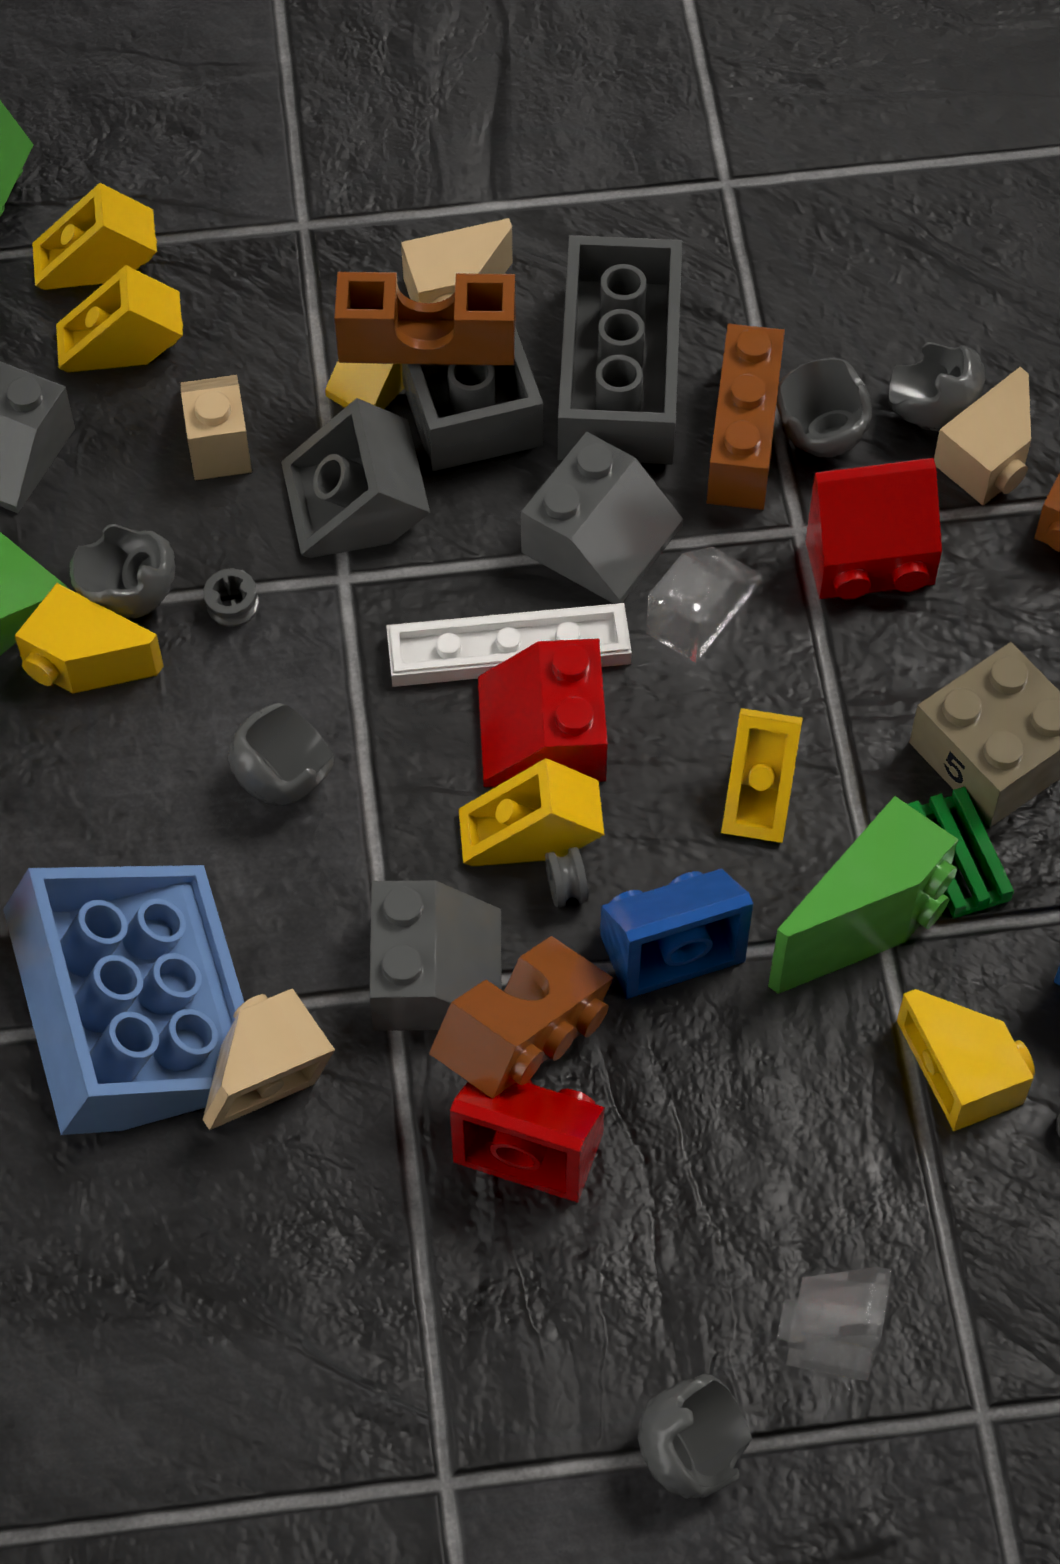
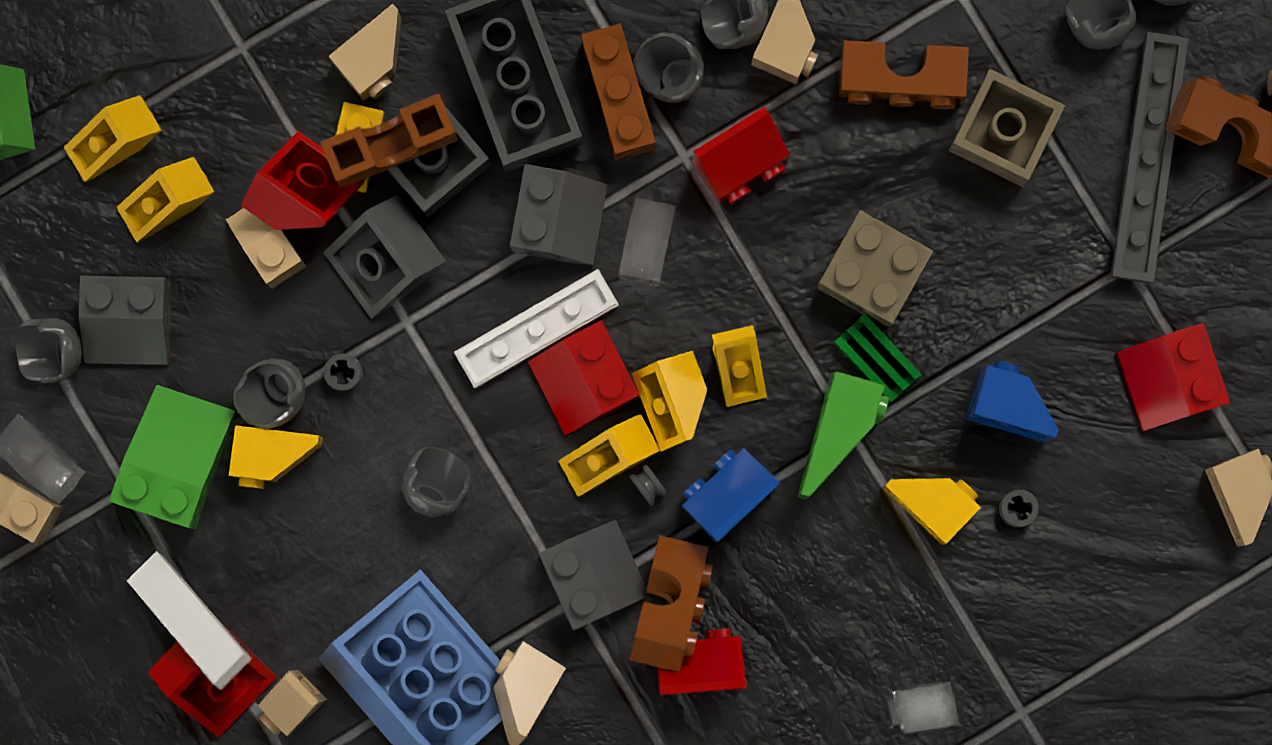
camera: 25 degrees left, 25 degrees up
(283, 348) = (297, 187): none -> red slope
(650, 767) = (672, 397): none -> yellow slope

